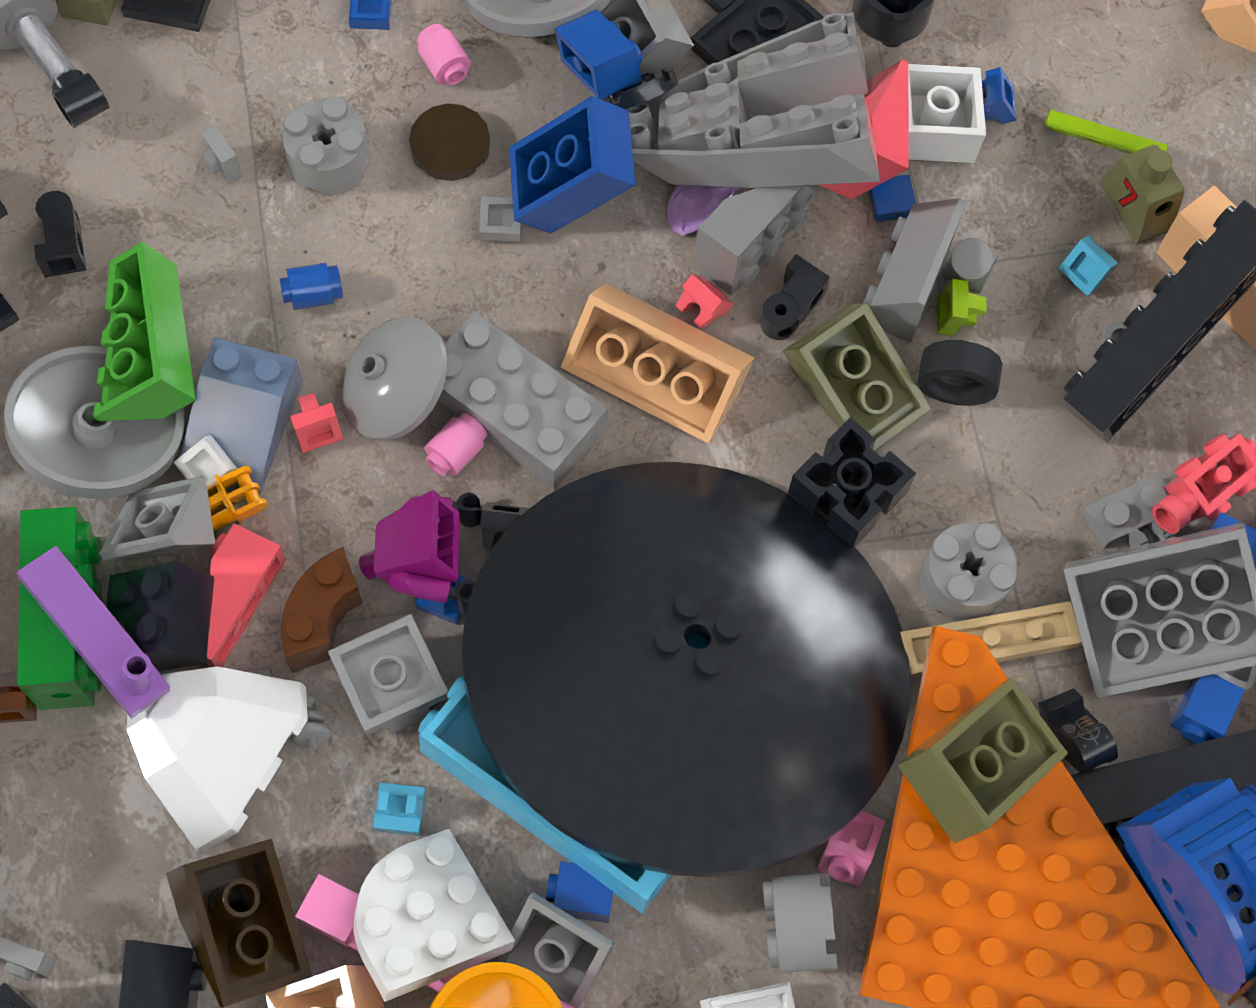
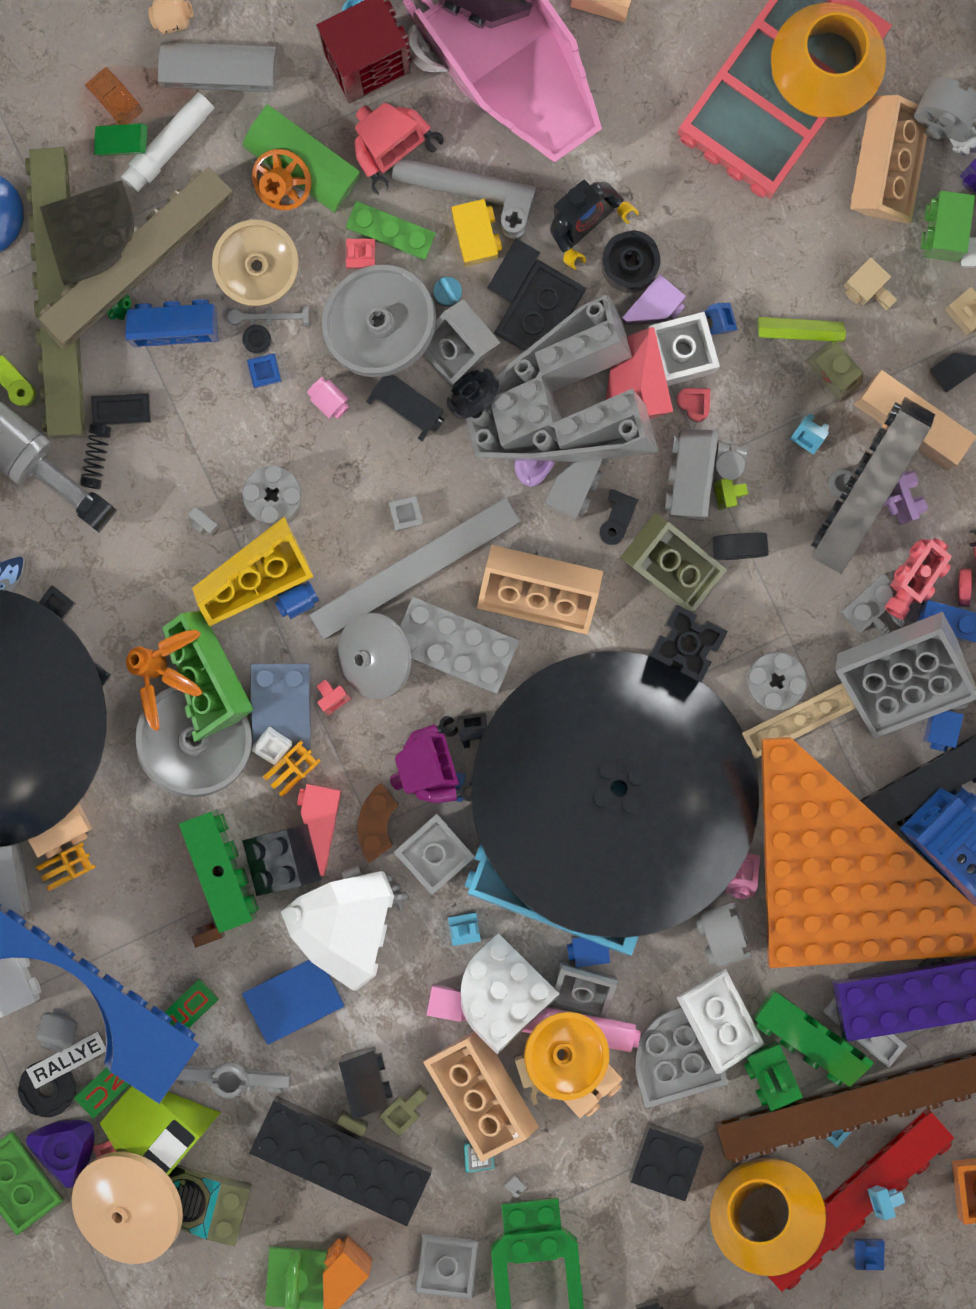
camera: 10 degrees left, 20 degrees up
(63, 236) = (119, 609): black leg -> none
(79, 312) = (152, 664): none -> orange plant
(93, 632) = (252, 888): medium lavender piece -> none
(99, 844) = (292, 1000): none -> blue tile
(129, 19) = (99, 431): none -> black piece
(161, 522) = (261, 798): light grey slope -> none
(240, 922) = (395, 1026): dark brown slope -> none
(270, 228) = (253, 574): none -> yellow wedge
(449, 141) = (352, 461): dark brown tile -> none
(455, 445) = (426, 686): bright pink brick -> none
(495, 290) = (415, 568): none -> light grey tile
(539, 79) = (408, 405): none -> black brick
(572, 165) = (446, 474): blue brick -> none
(599, 54) = (439, 379): blue brick -> none
(709, 298) = (559, 532): coral tile -> none
(892, 198) = (668, 421): blue tile -> none
(919, 44) = (656, 304): none -> lavender slope
(935, 185) = (695, 402): none -> coral tile
(983, 761) = (811, 819): olive slope -> none
(1078, 731) = (864, 770): black leg -> none
(1202, 379) = (901, 500): none -> lavender hips
(1210, 105) = (869, 283): none -> tan brick

